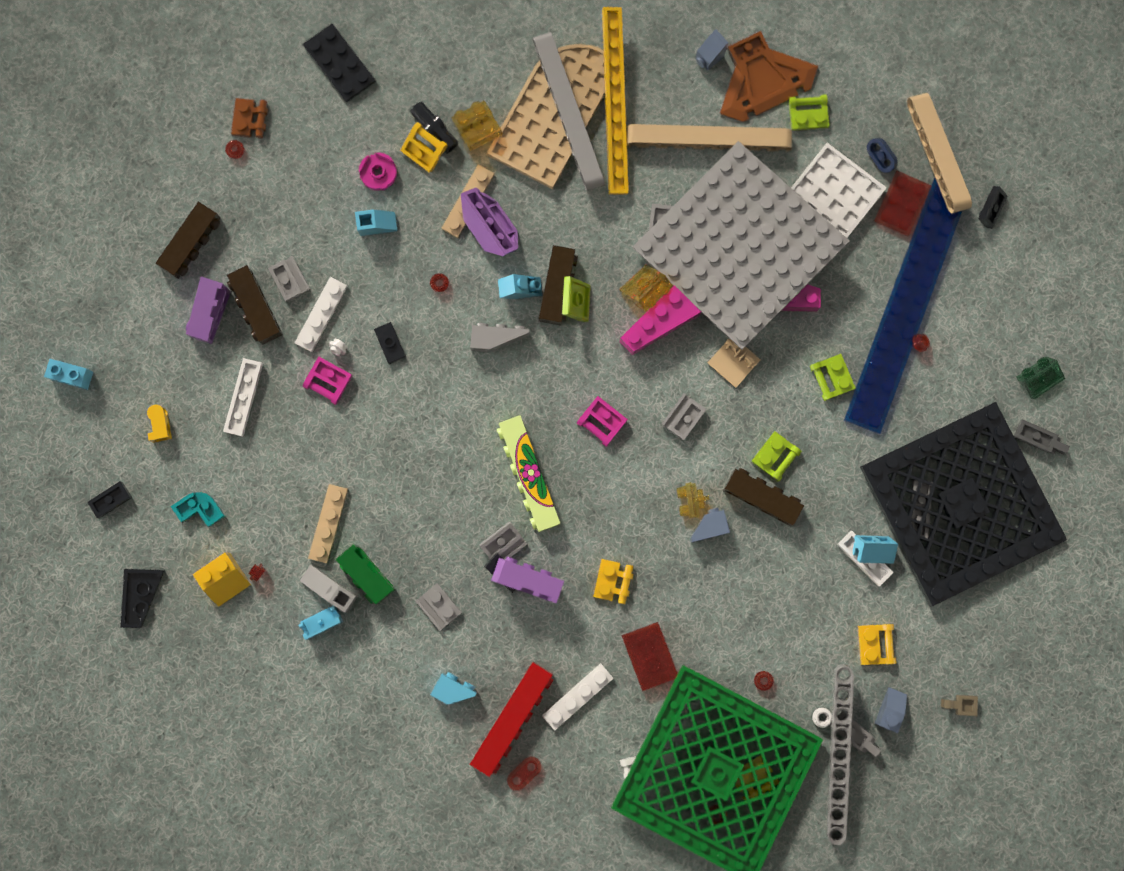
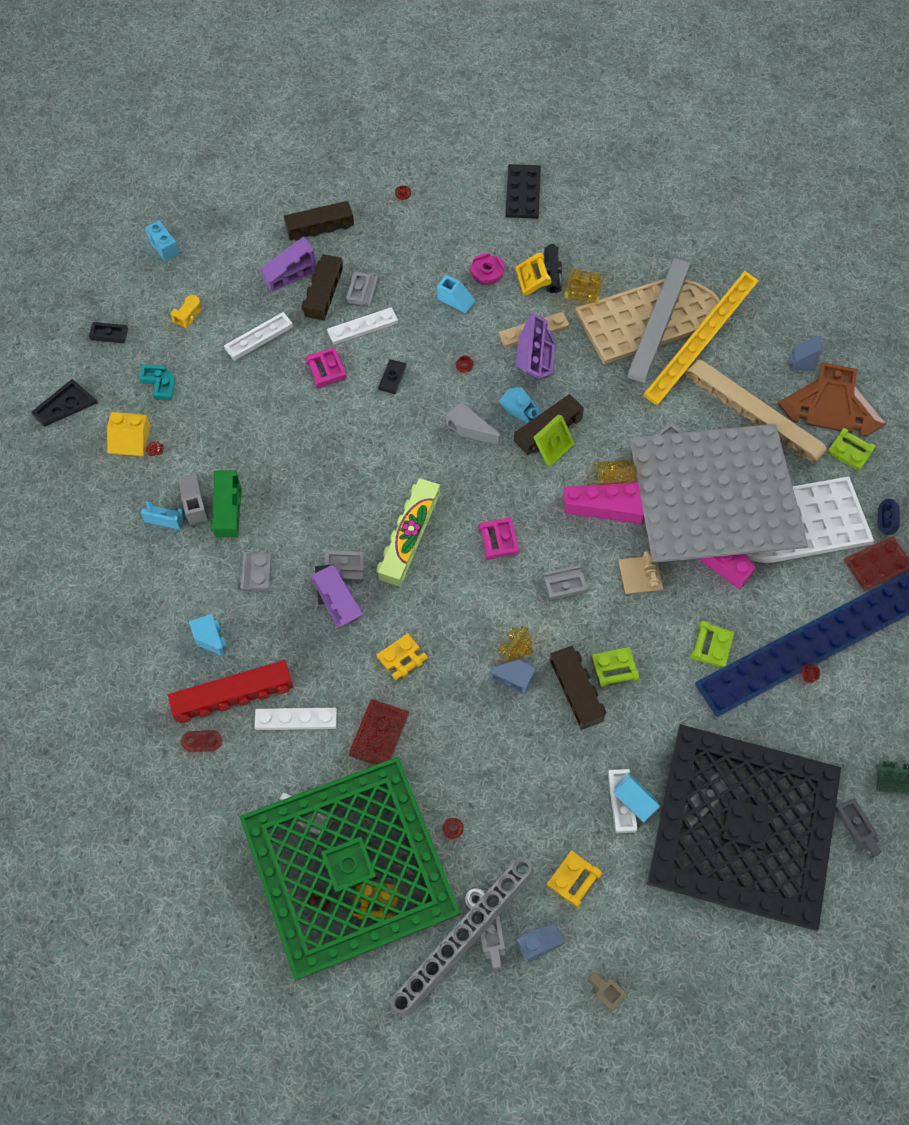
camera: 40 degrees right, 20 degrees down
(243, 118) = (427, 179): dark orange plate -> none
(328, 523) = (235, 456): tan plate -> none
(338, 347) = (353, 352): white plate -> none

